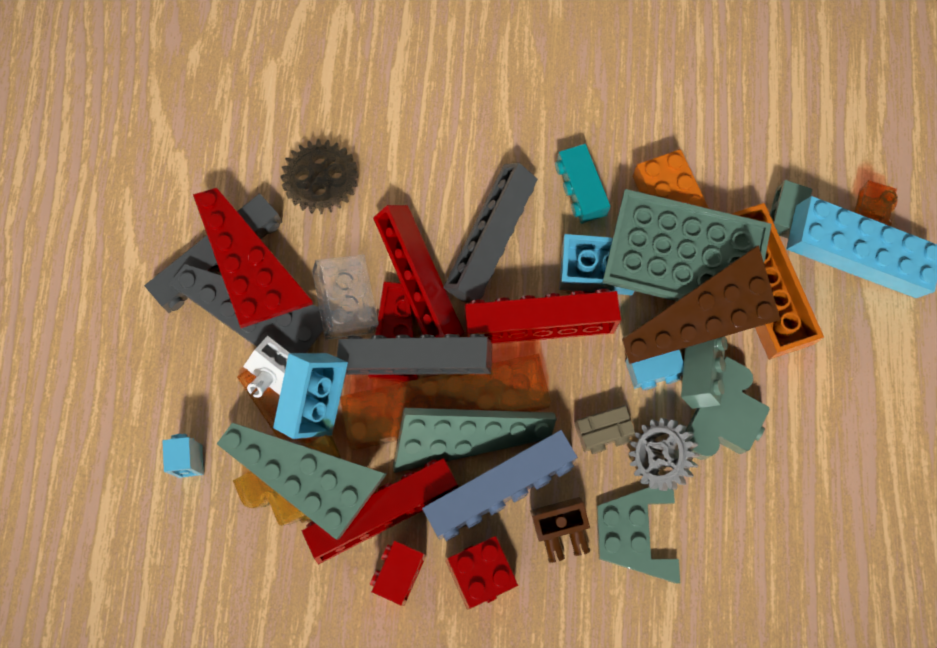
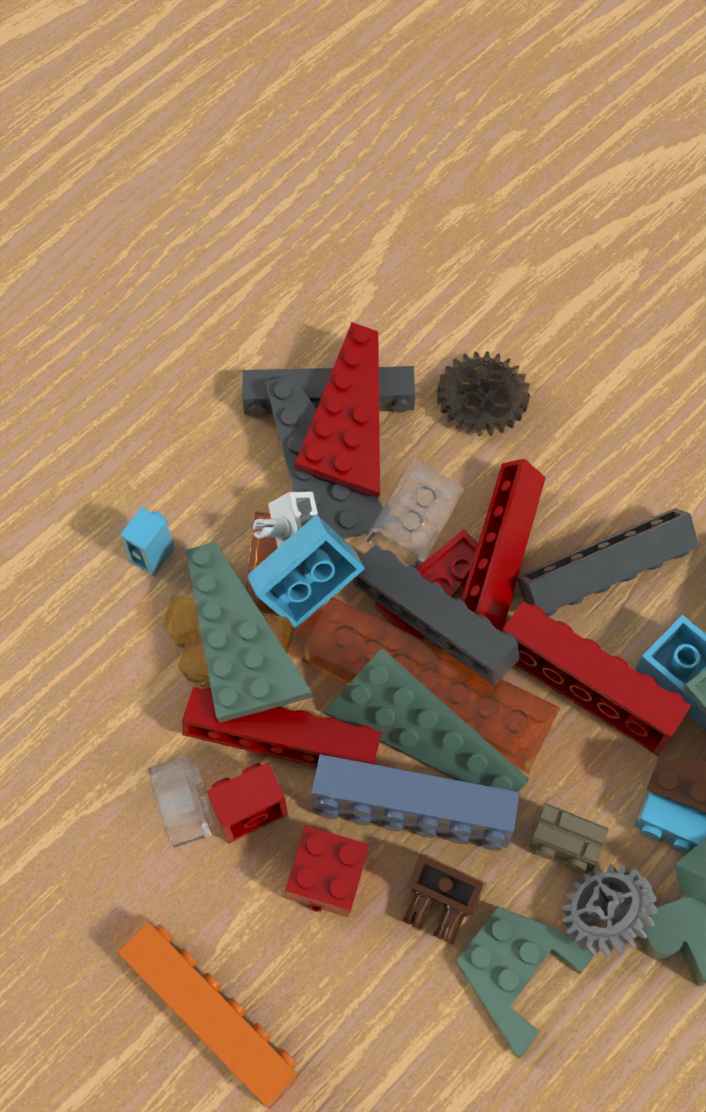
camera: 40 degrees right, 10 degrees down
(356, 609) = (182, 809): none -> clear brick

